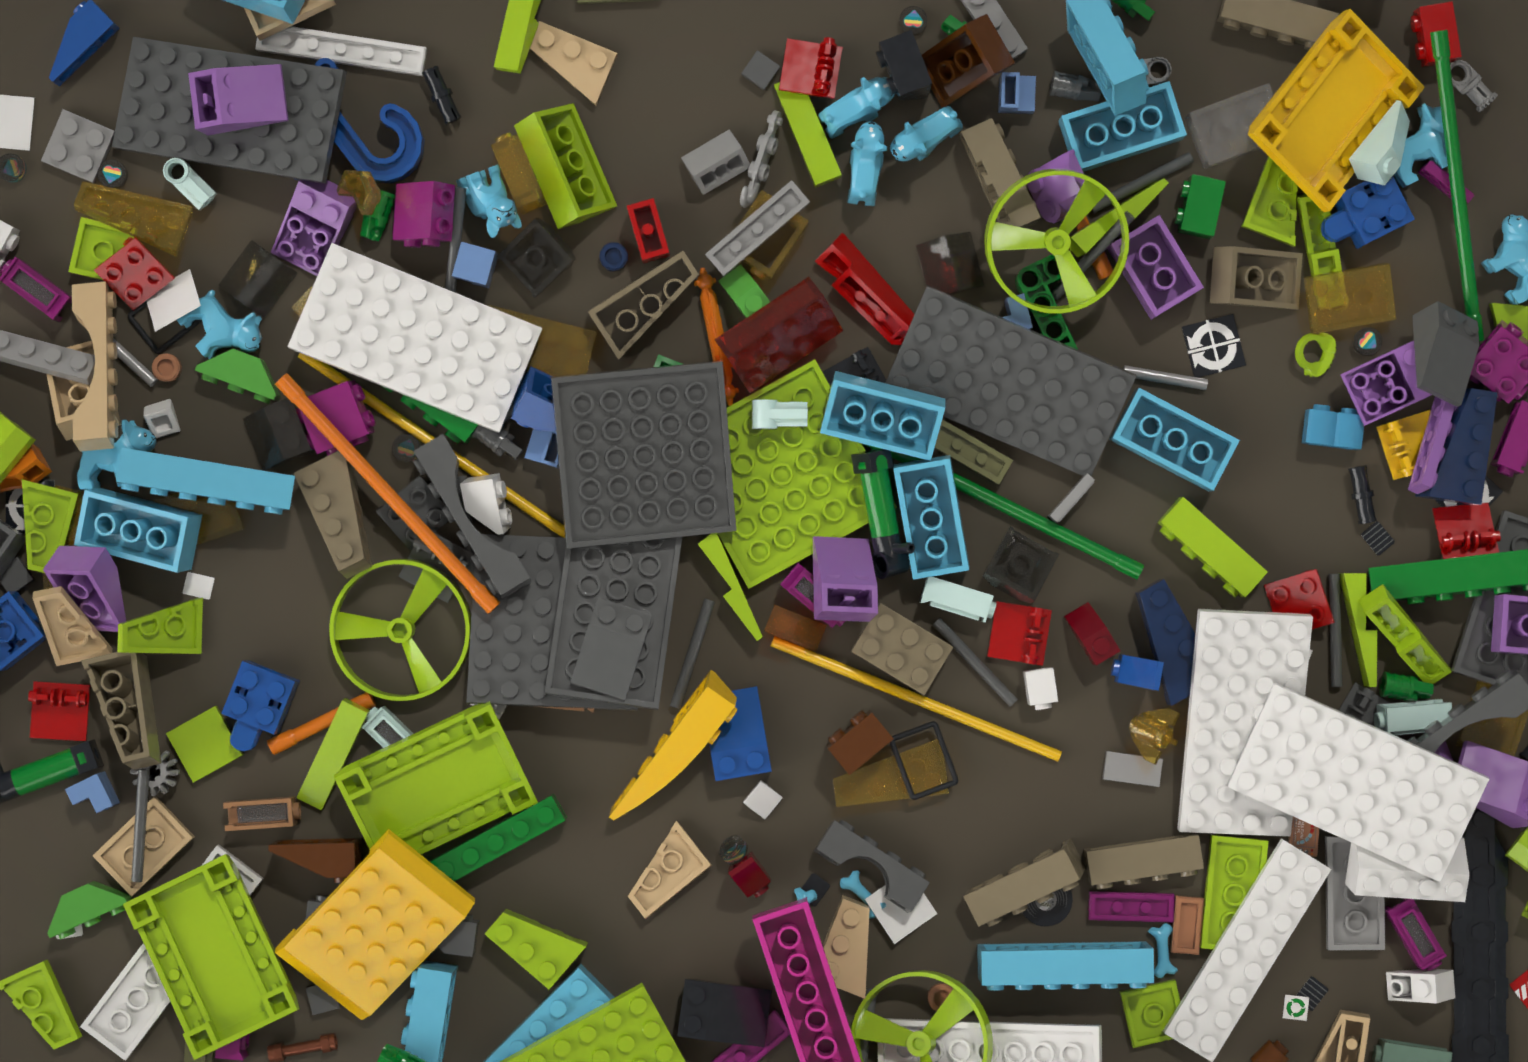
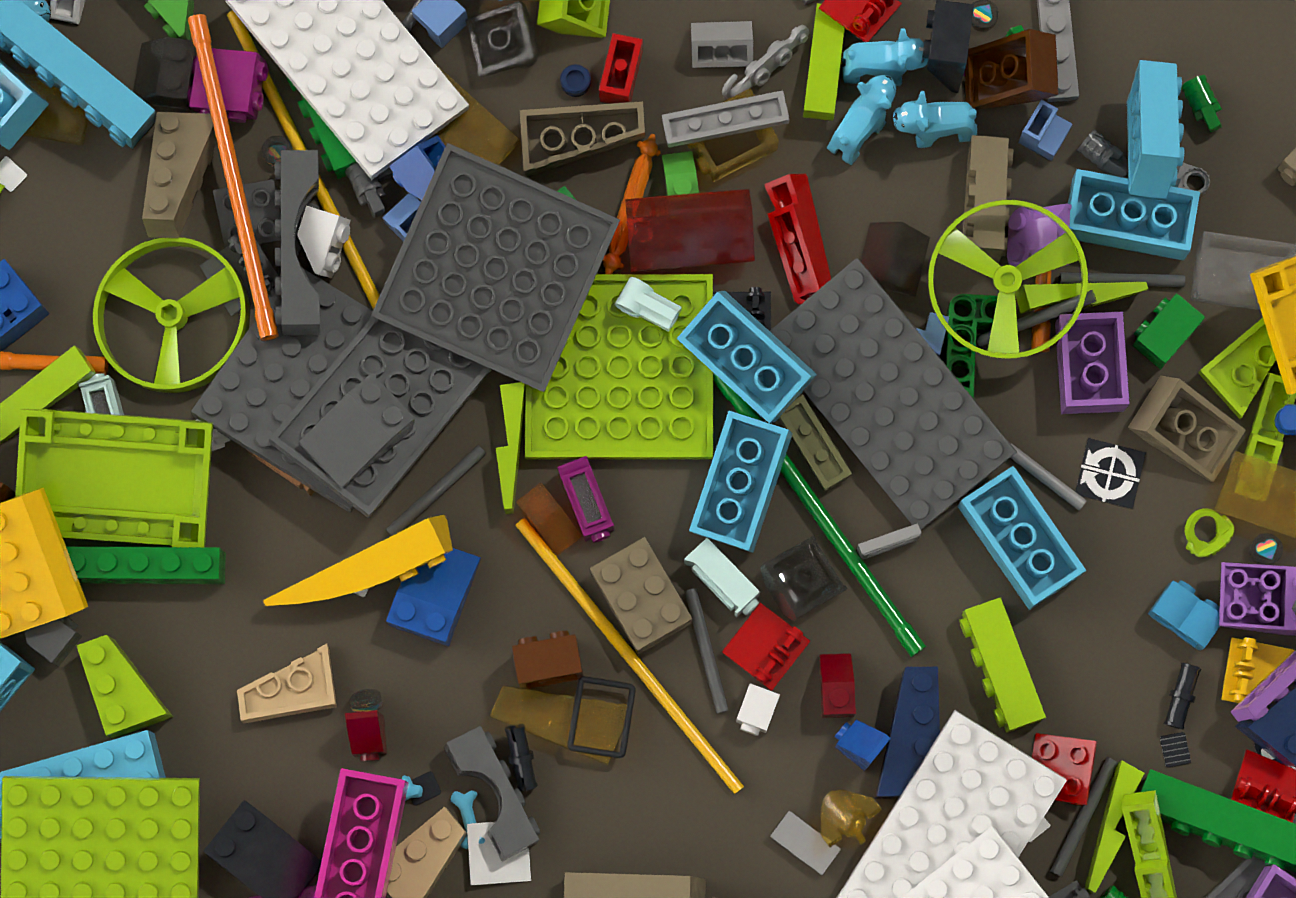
camera: 35 degrees right, 10 degrees down
(762, 799) = (422, 669): white slope -> none
(844, 580) = (620, 494): medium lavender slope -> none
(878, 825) = (521, 757): none -> black pin
(889, 553) = (681, 494): piece -> none

